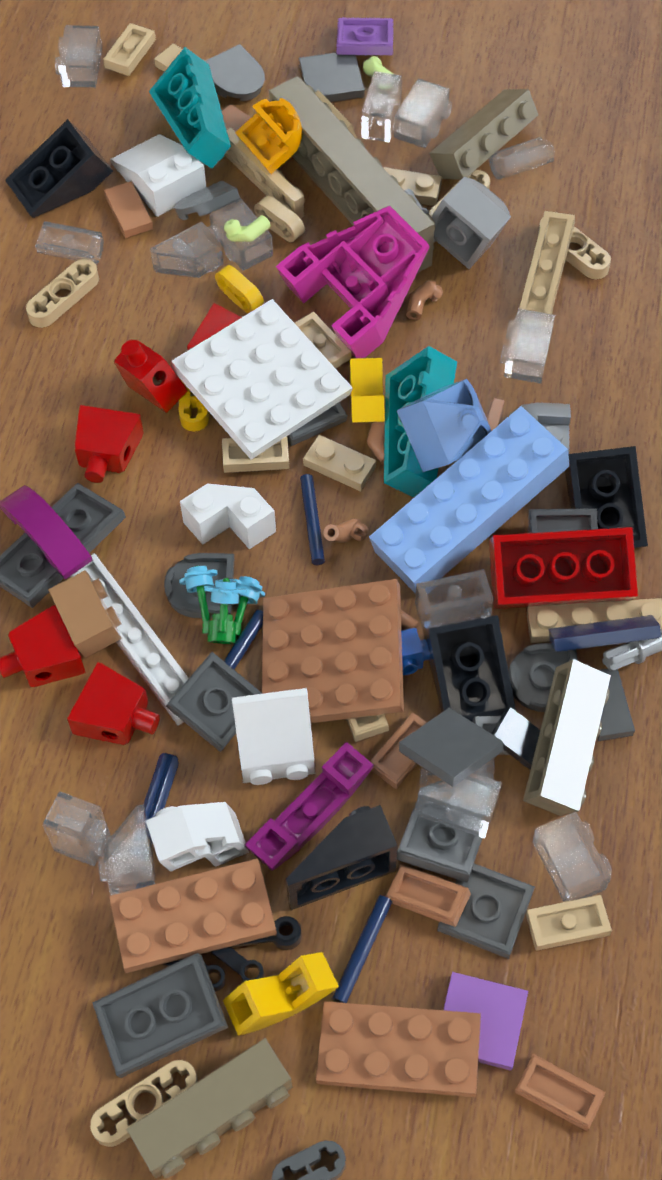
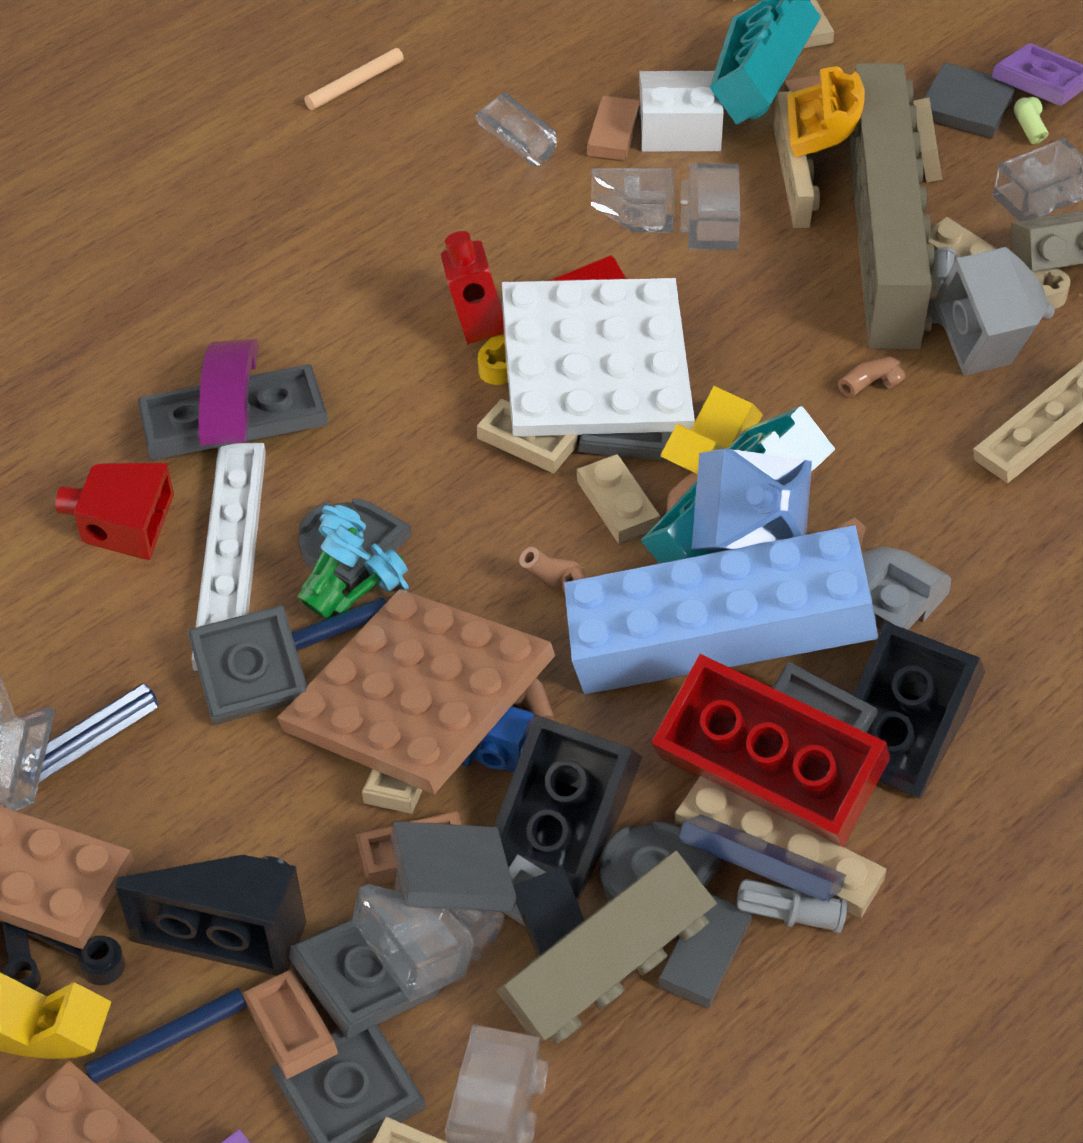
camera: 35 degrees right, 10 degrees down
(58, 171) = (571, 55): black slope -> none
(59, 305) = (431, 183): tan beam -> none
(85, 613) = (190, 492): medium nougat brick -> none
(106, 440) = (376, 337): red torso -> none
(111, 708) = (132, 605): red torso -> none
(196, 832) = (87, 775): white brick -> none
(207, 200) = (700, 153): dark grey tile -> none
(218, 507) = (432, 467): white brick -> none
(236, 74) = (849, 41): tile -> none
(239, 289) = (660, 254): yellow beam -> none
(246, 233) = (711, 201): yellowish green arm -> none
(274, 736) = (261, 727): white slope -> none
(282, 220) = (772, 212): tan beam -> none
(311, 809) = (294, 836): magenta slope -> none
(312, 519) = (534, 537): dark blue bar -> none
(324, 339) = (706, 358): tan plate -> none
(366, 268) = (812, 302): dark pink wedge -> none
(381, 106) = (993, 143): clear brick -> none
(453, 599) = (609, 707): clear brick -> none
(528, 346) = (958, 489): clear brick -> none

